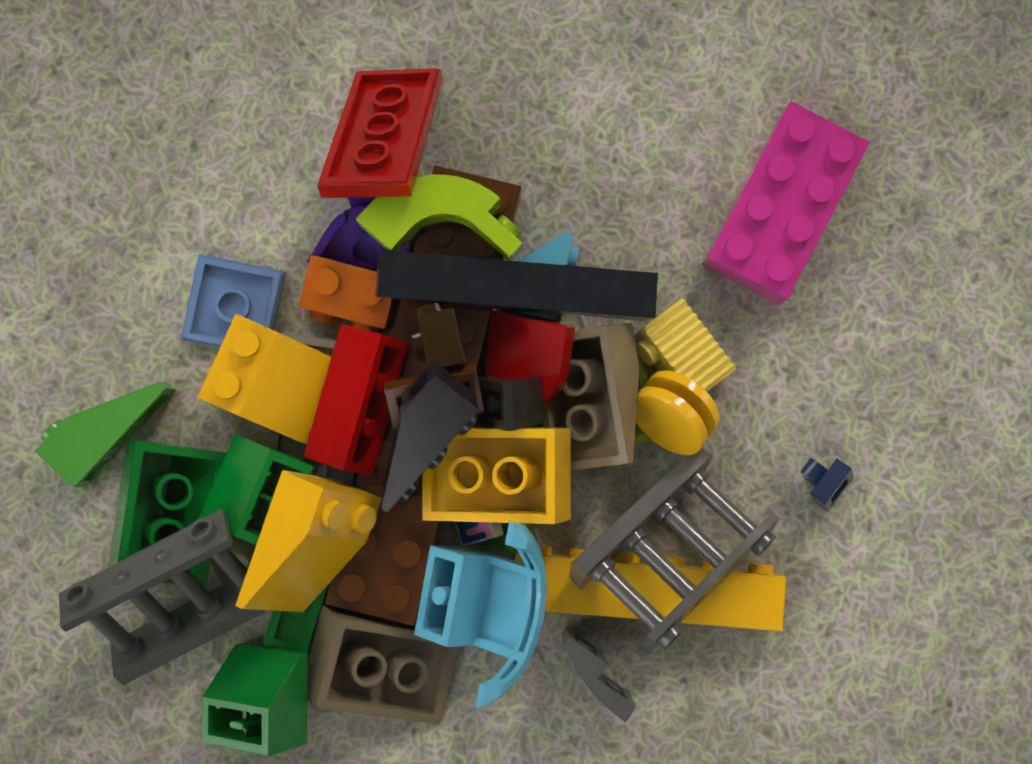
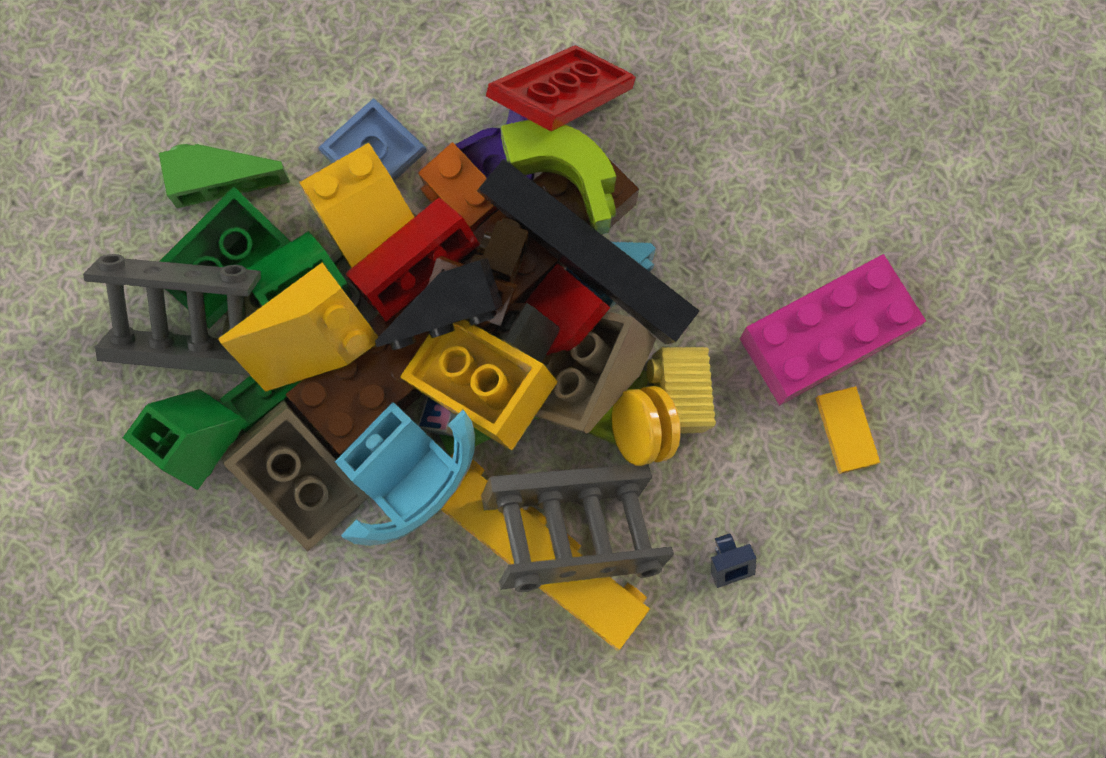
camera: 30 degrees right, 10 degrees down
(589, 665) = (449, 574): dark grey slope -> none
(855, 288) = (847, 430): none -> yellow tile

